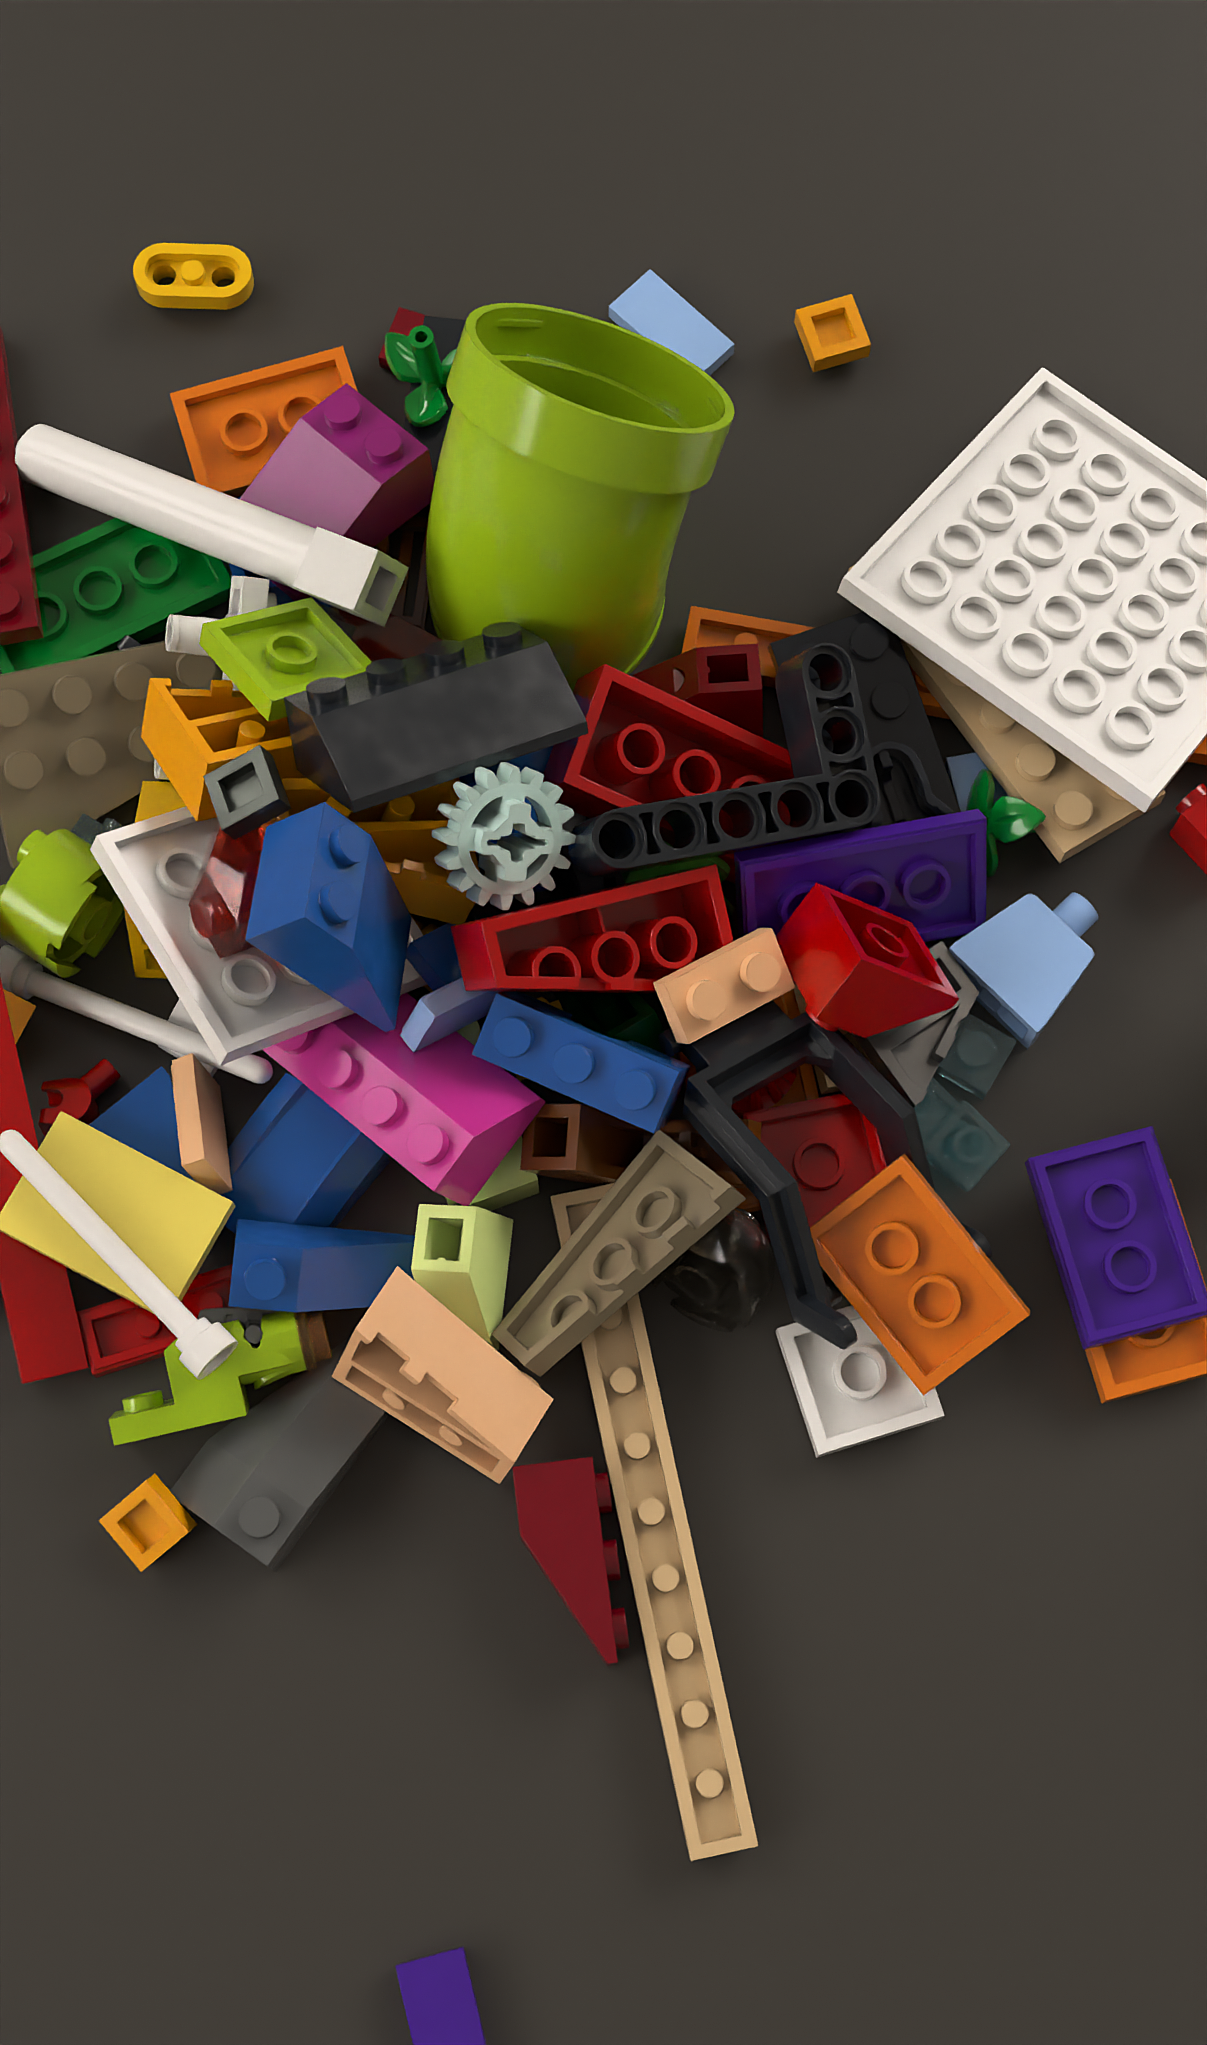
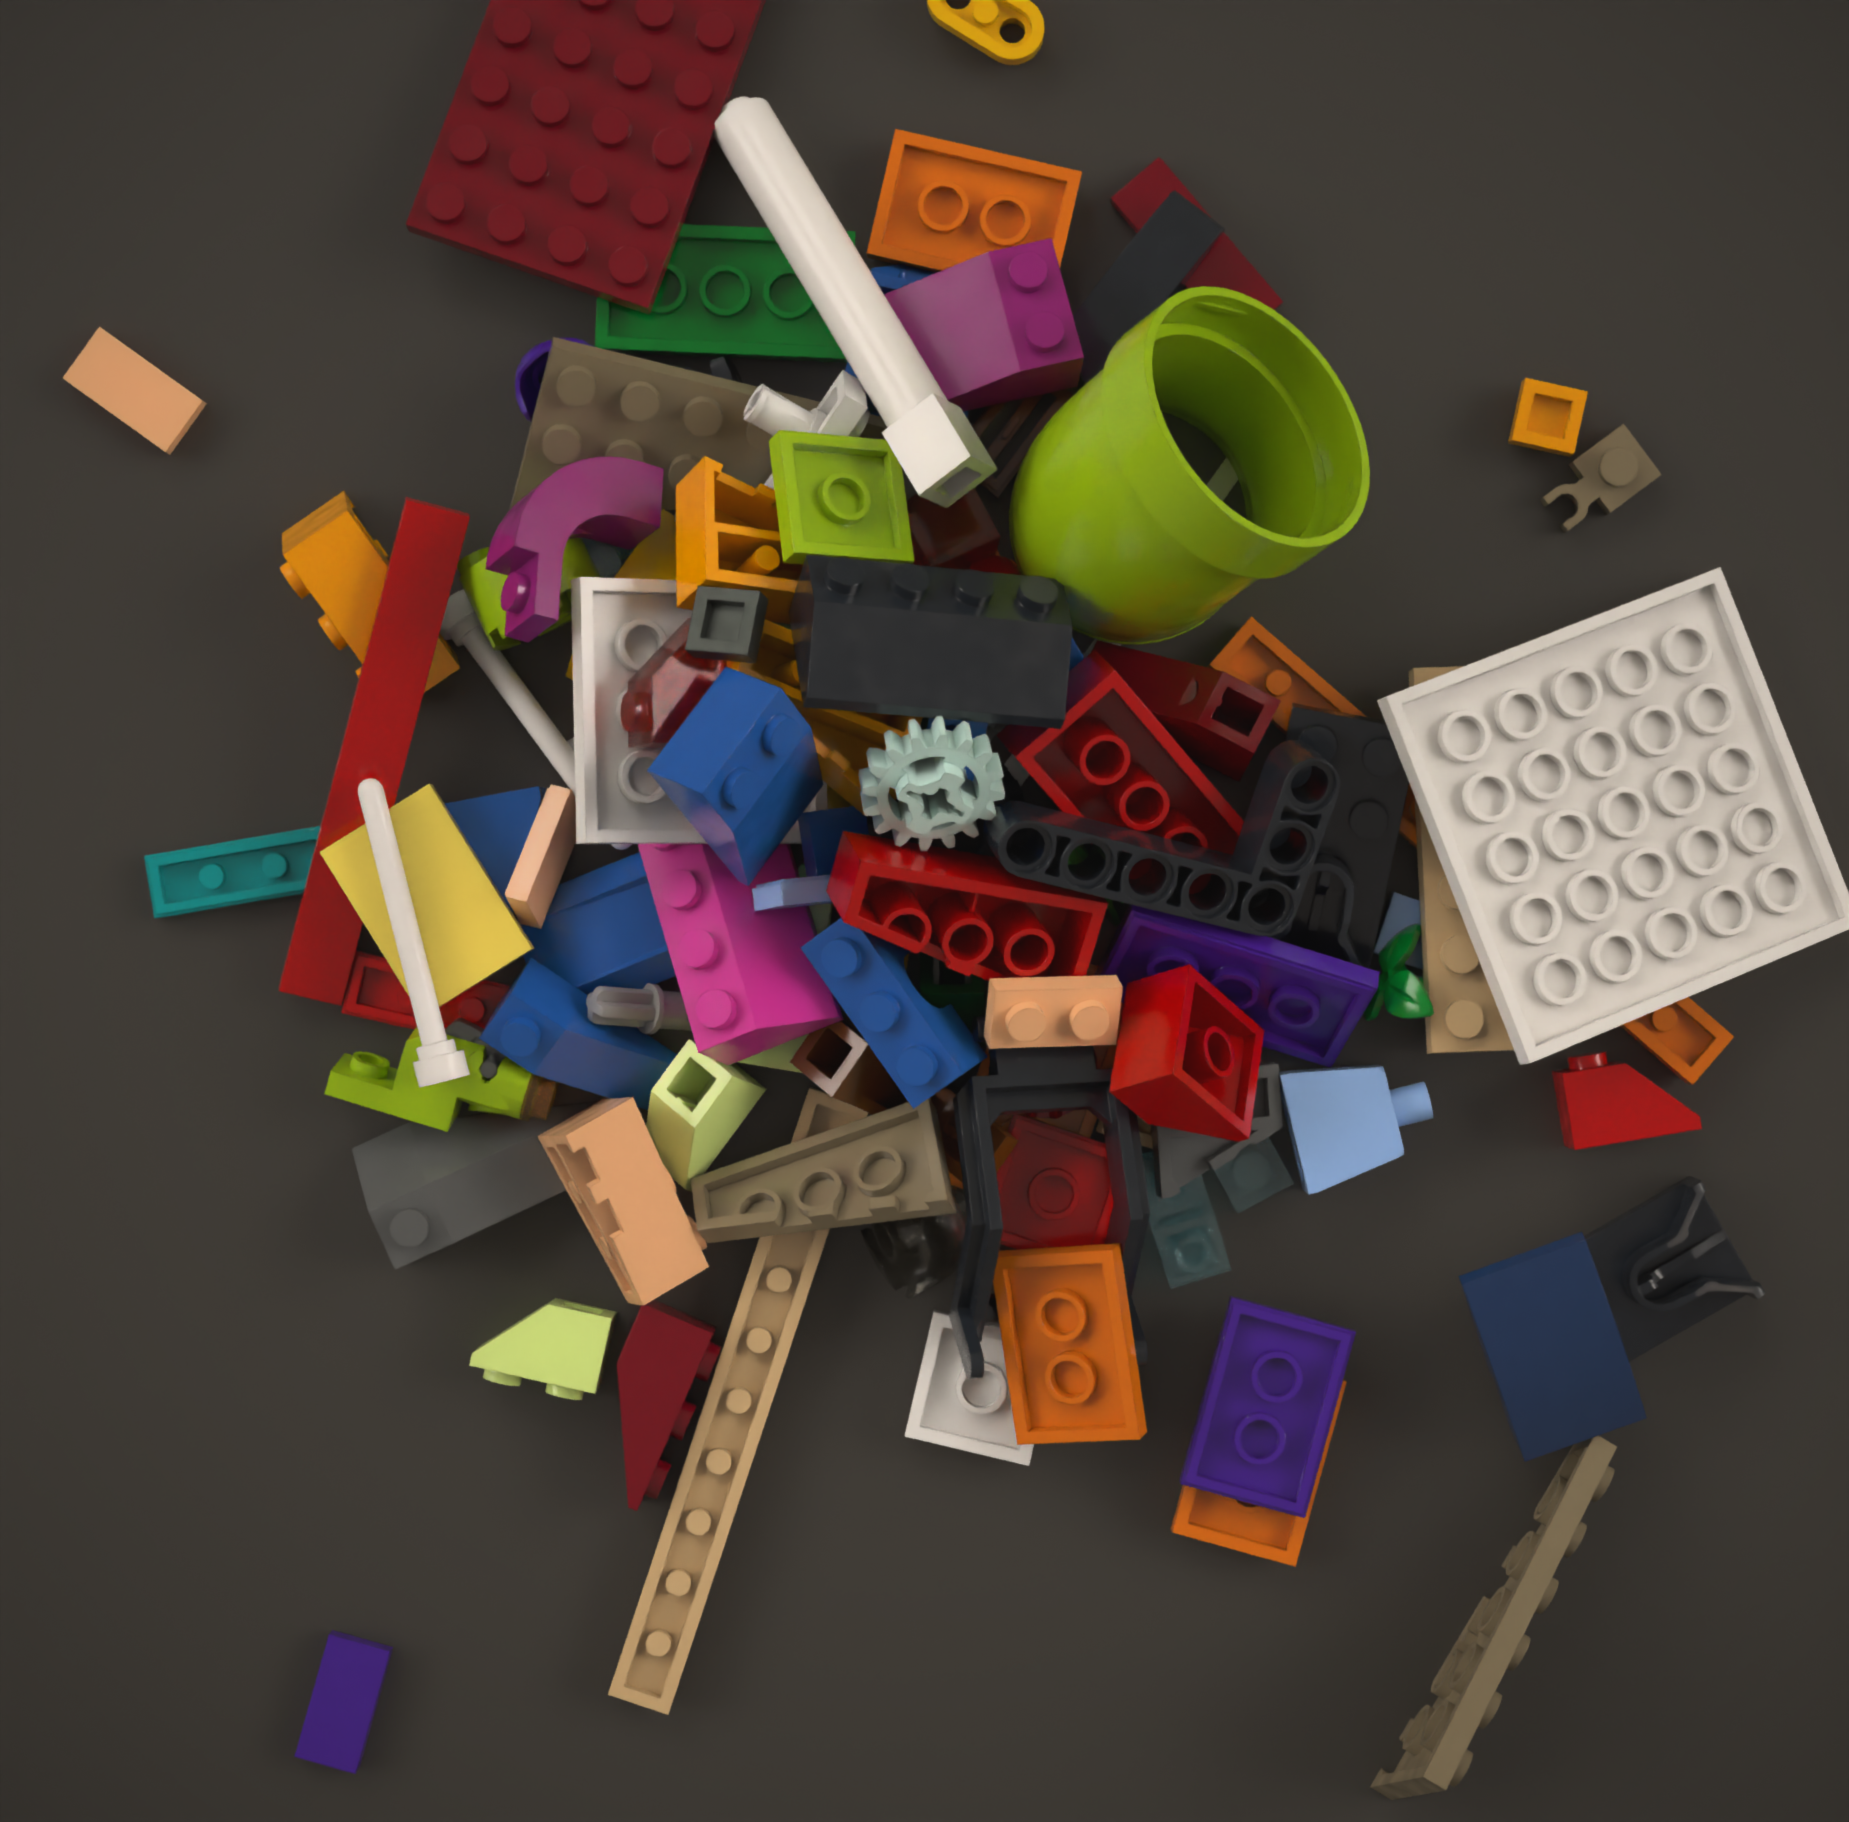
camera: 30 degrees right, 15 degrees up
(60, 796) = (589, 499): none -> magenta arch
(77, 1095) = (457, 763): red piece -> none
(148, 1522) = (321, 1167): light orange plate -> none
(366, 1205) = (640, 1008): none -> light grey axle
(414, 361) = (1129, 239): green plant -> none
(452, 1559) = (554, 1345): none -> yellowish green slope
(668, 319) = (1401, 323): light blue tile -> none
(906, 354) = (1606, 474): none -> dark tan plate

